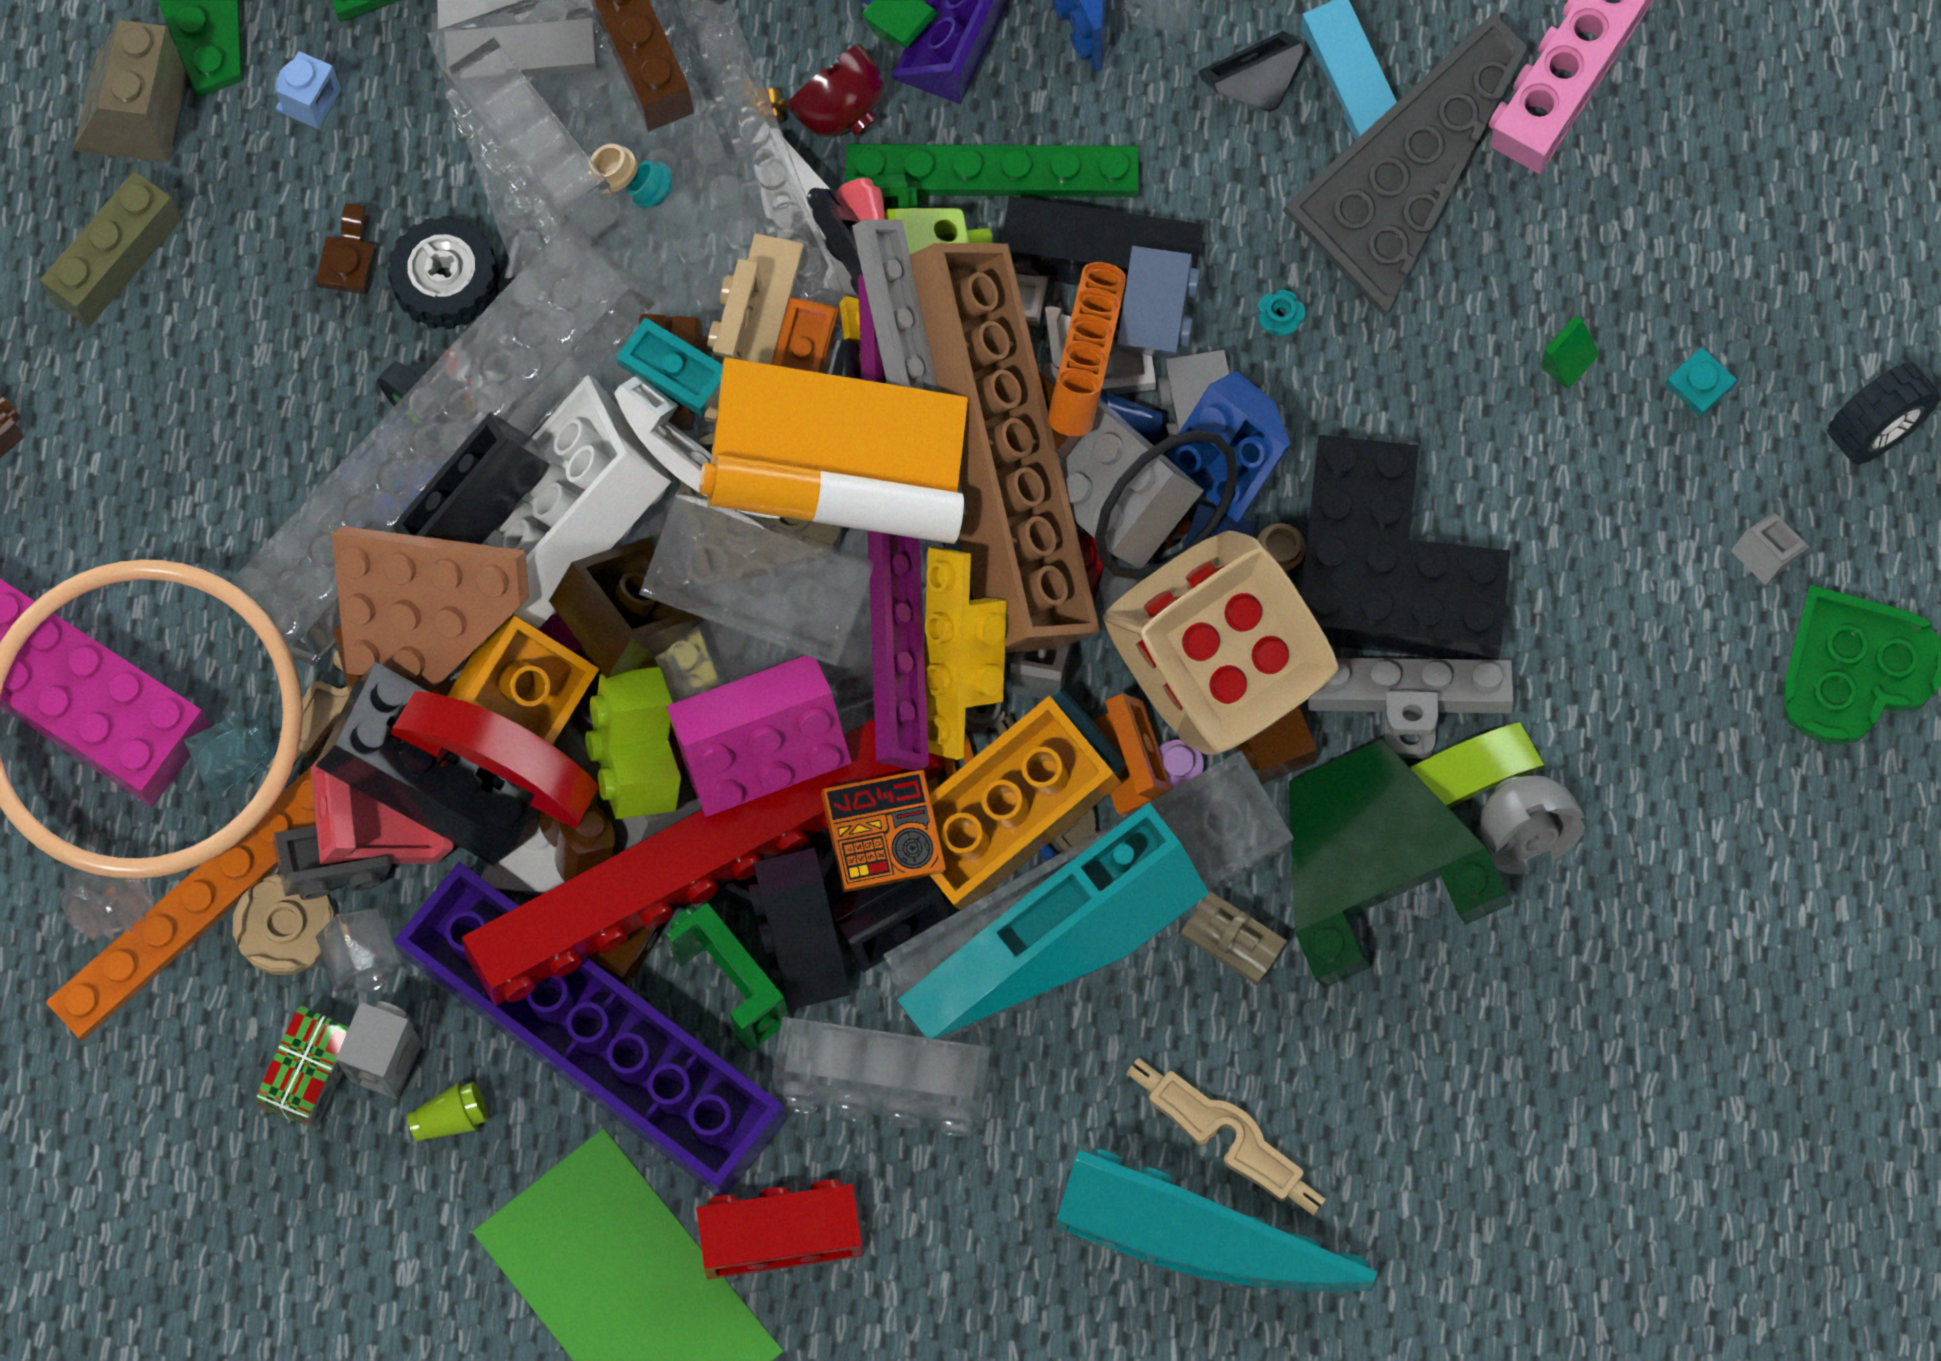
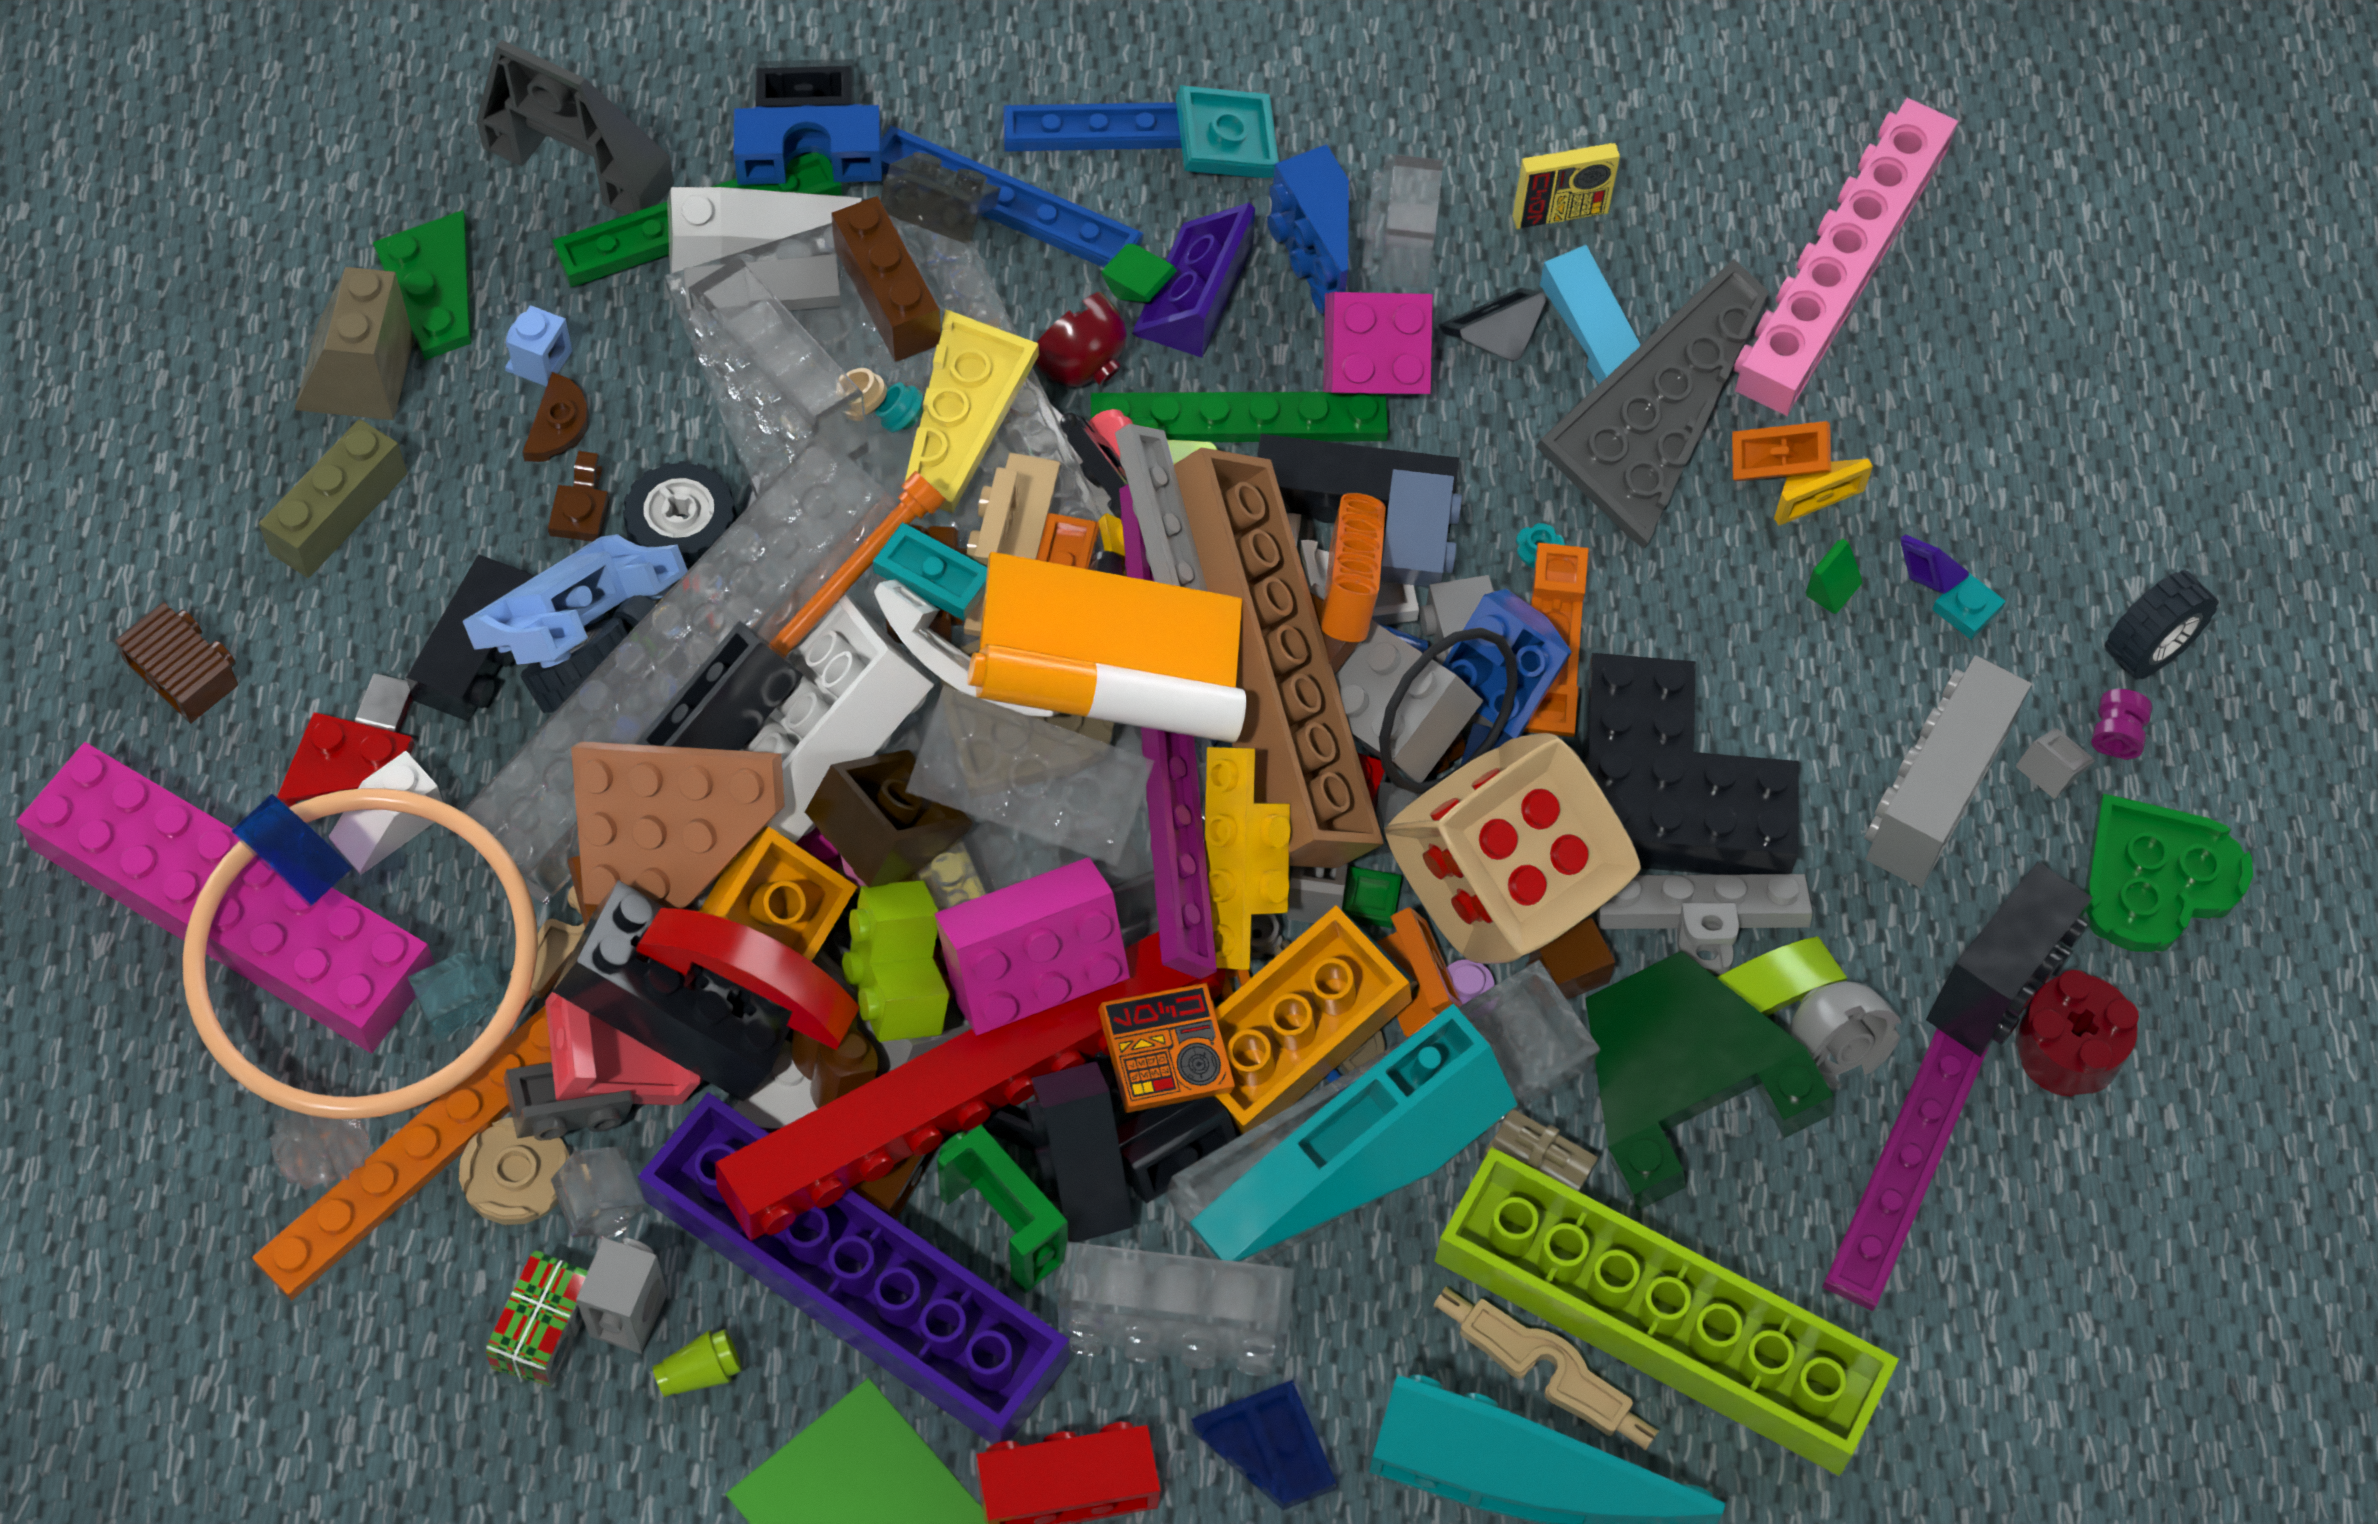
camera: 10 degrees left, 10 degrees down
(74, 622) = (291, 849): none -> clear blue slope
(123, 516) = (338, 757): none -> red wing
(150, 599) = (372, 835): none -> white slope
(162, 461) = (385, 703): none -> flat silver piece
(246, 396) = (448, 669): none -> black brick
(309, 380) = (550, 611): none -> light blue bracket
(328, 166) = (558, 422): none -> reddish brown plate
(338, 428) = (557, 683): none -> black wheel
(660, 292) = (915, 500): none -> orange piece
(717, 172) = (966, 401): none -> light yellow wing
(966, 1202) = (1270, 1445): none -> clear blue wing
(1092, 673) = (1371, 896): none -> green tile
(1130, 100) = (1377, 343): none -> dark pink brick
(1292, 387) = (1559, 595): none -> orange slope
(1337, 1088) = (1666, 1311): none -> lime brick
(1526, 219) = (1781, 451): none -> orange slope
(1561, 252) = (1815, 491): none -> yellow slope
(1585, 945) = (1903, 1172): none -> magenta tile
(1654, 560) = (1944, 770): none -> light grey brick
(1665, 343) = (1931, 565): none -> dark purple slope
(1696, 757) = (2011, 960): none -> black brick
(1749, 801) = (2076, 1034): none -> dark red brick
(1837, 512) = (2122, 723): none -> magenta wheel

